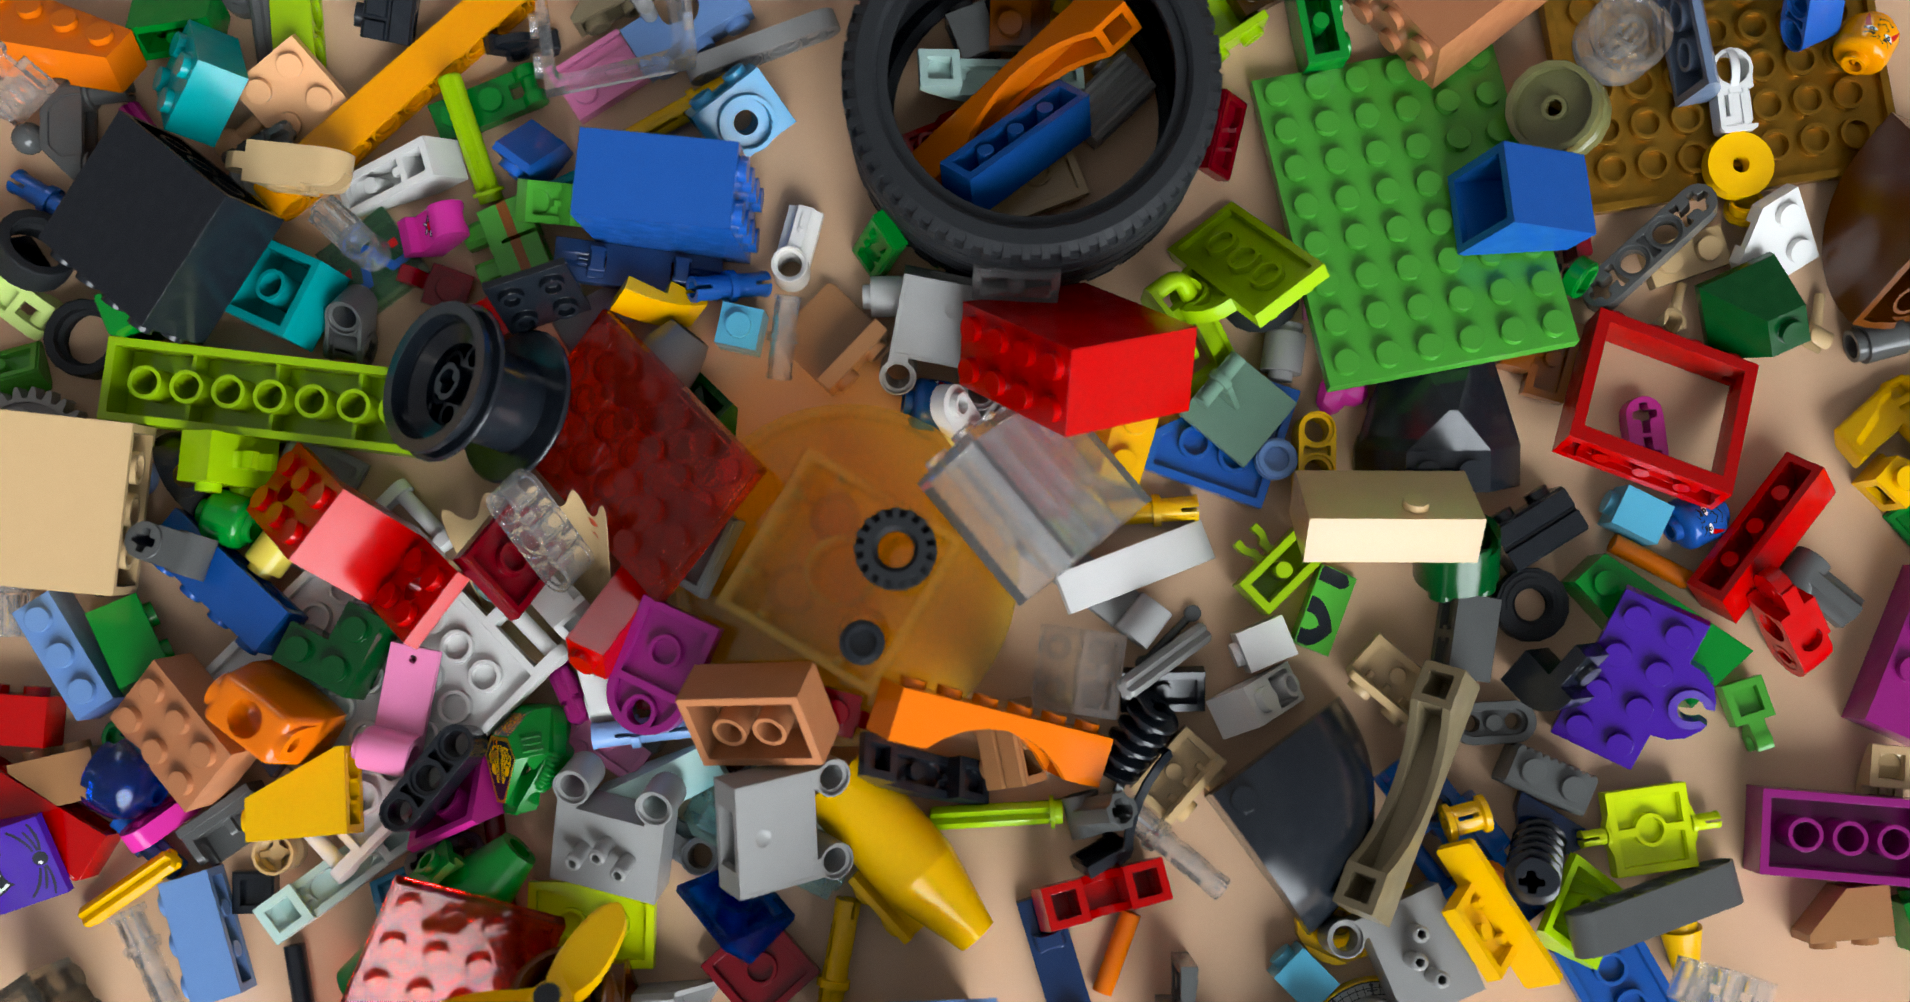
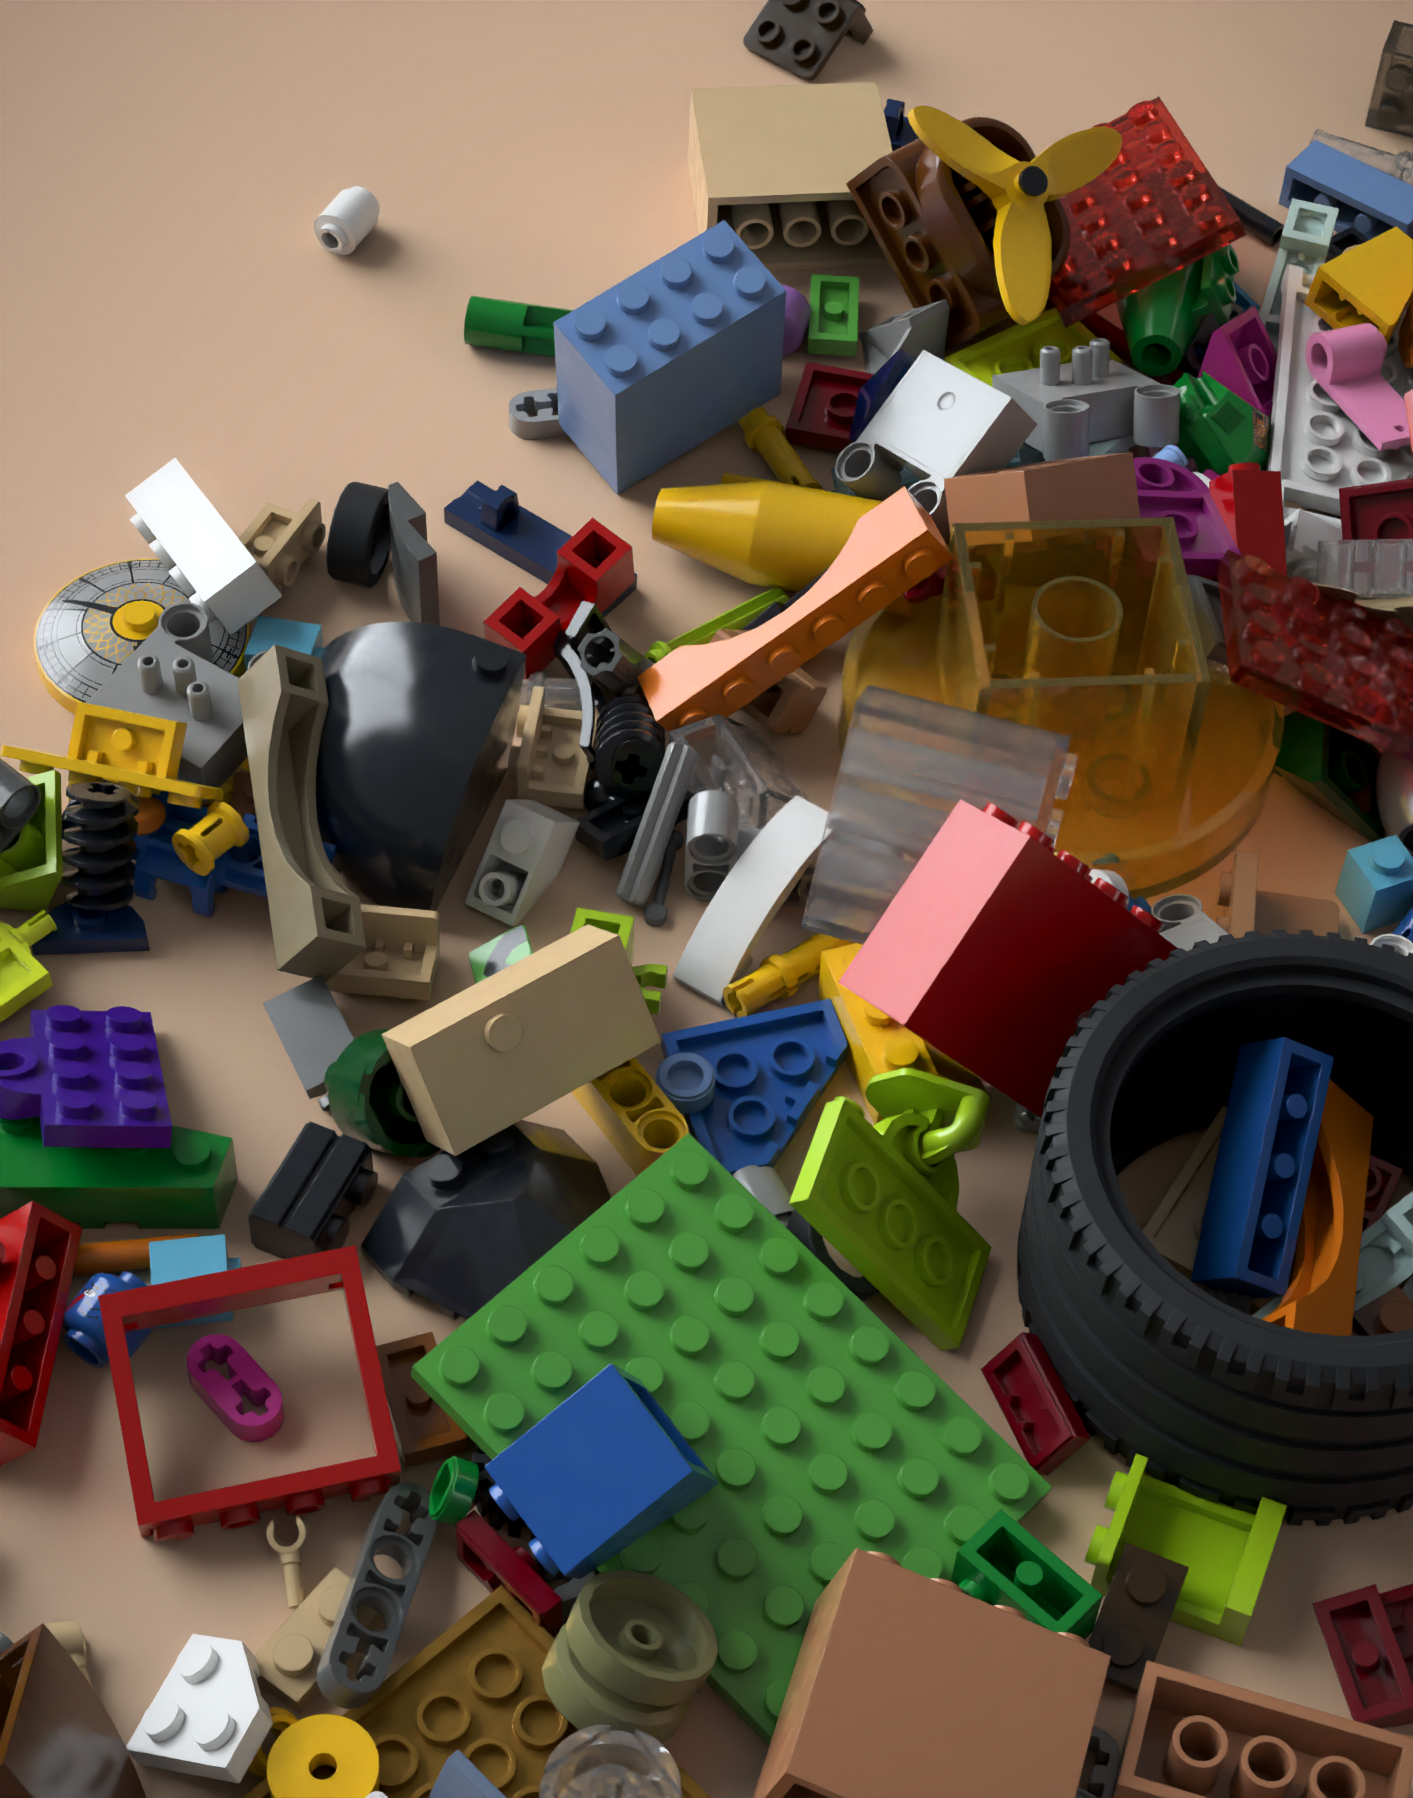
camera: 140 degrees right, 35 degrees down
(415, 786) = (1286, 351): black beam -> none
(783, 337) = (1330, 895): clear pin -> none
(861, 642) = (1001, 551): black plate -> none
(895, 521) = (1036, 651): black tyre -> none
(1116, 952) = (493, 576): orange piece -> none
(1238, 408) = (773, 1098): sand green plate -> none
(1262, 644) = (551, 904): white brick -> none
(1491, 725) = (225, 984): dark grey plate -> none
(1545, 778) = (131, 956): dark grey brick -> none
(1551, 684) = (192, 1029): black brick -> none
(1555, 609) = (254, 1095): black tyre -> none
(1752, 310) = (184, 1595): dark green slope -> none

